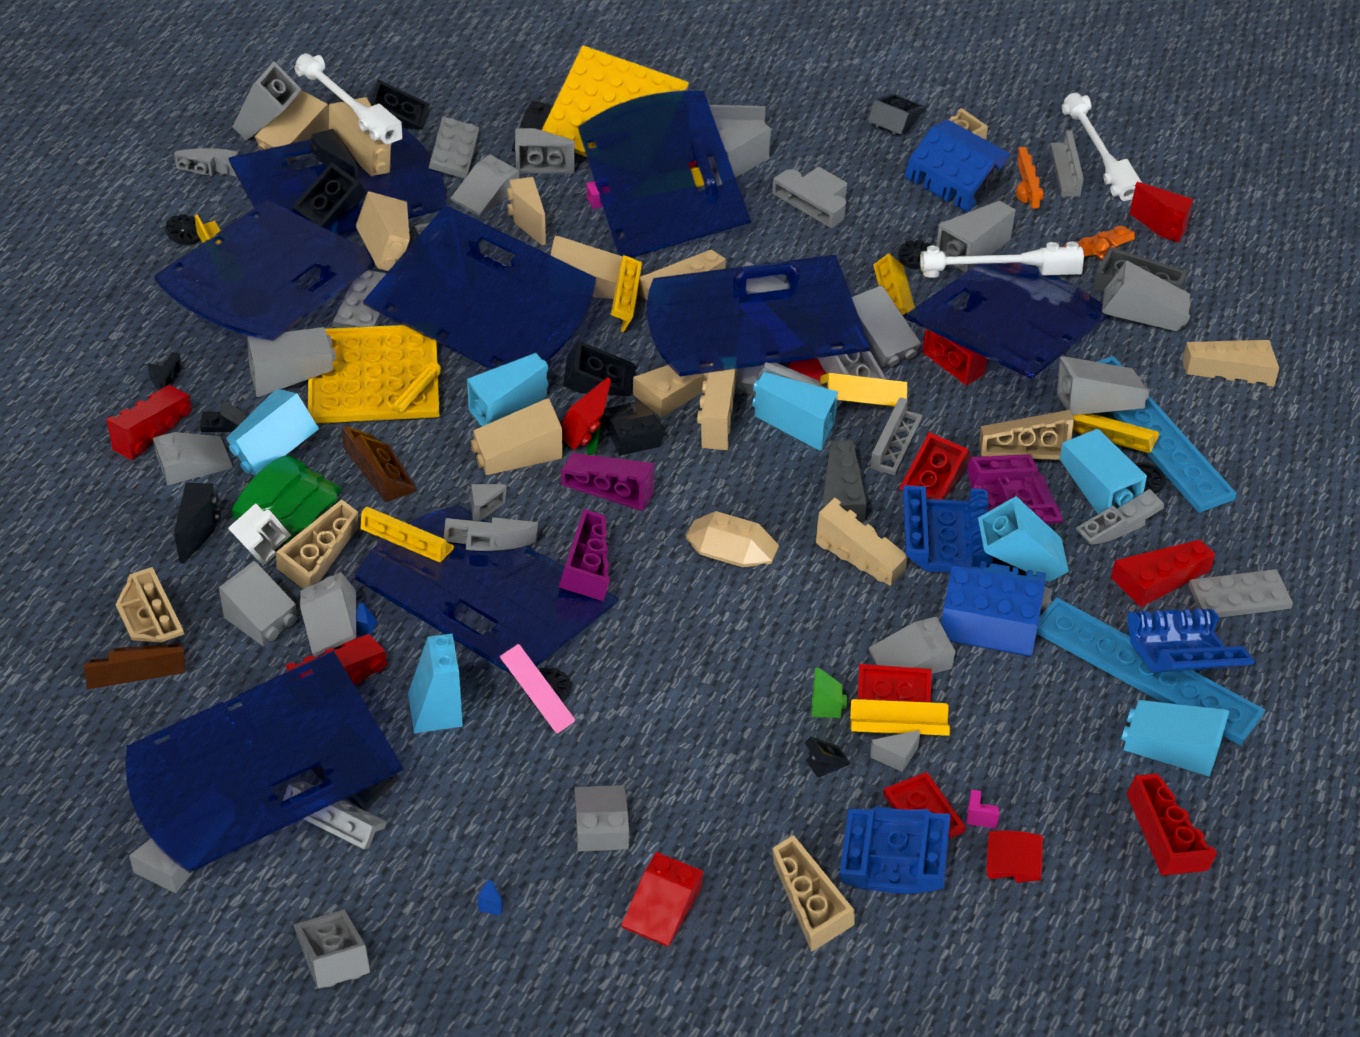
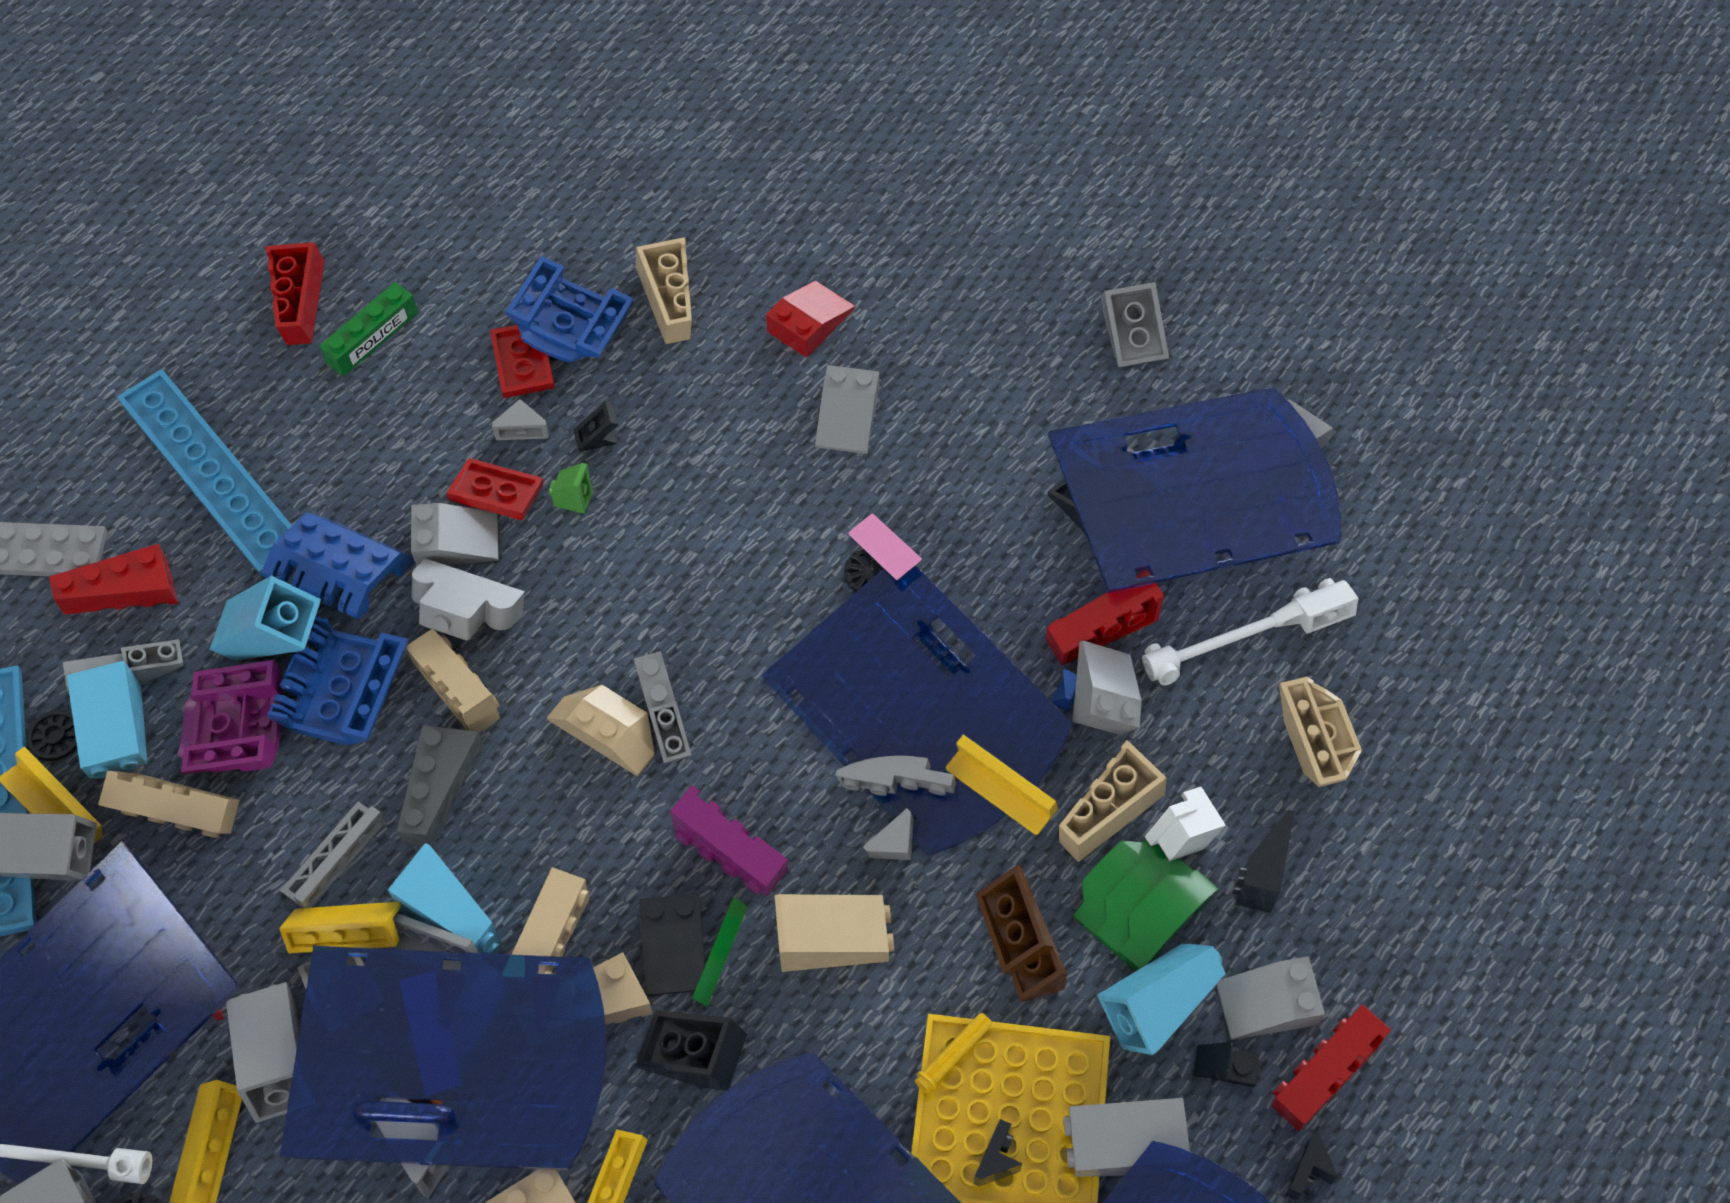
camera: 165 degrees left, 15 degrees up
(135, 664) = (1355, 678): reddish brown slope -> none
(155, 713) = (1309, 609): none -> white bar
(257, 604) = (1190, 723): light grey slope -> none
(377, 338) = (994, 1164): none -> black slope
(436, 687) = (997, 551): medium azure slope -> none
(489, 899) = (977, 342): blue slope -> none
(507, 389) = (829, 1014): medium azure slope -> none
(585, 416) = (729, 950): red slope -> none
(587, 562) = (786, 718): magenta wedge -> none
(686, 556) = (662, 707): none -> light grey slope
(879, 595) = (462, 601): none -> light grey brick
(899, 717) = (505, 452): yellow panel -> none
(937, 467) = (307, 785): red slope -> none
(981, 814) = (466, 347): dark pink panel -> none
(1014, 855) = (455, 297): red slope -> none
(1077, 807) = (368, 329): none -> green brick
(1176, 734) = (225, 379): medium azure slope -> none
(1178, 646) = (157, 458): blue slope -> none

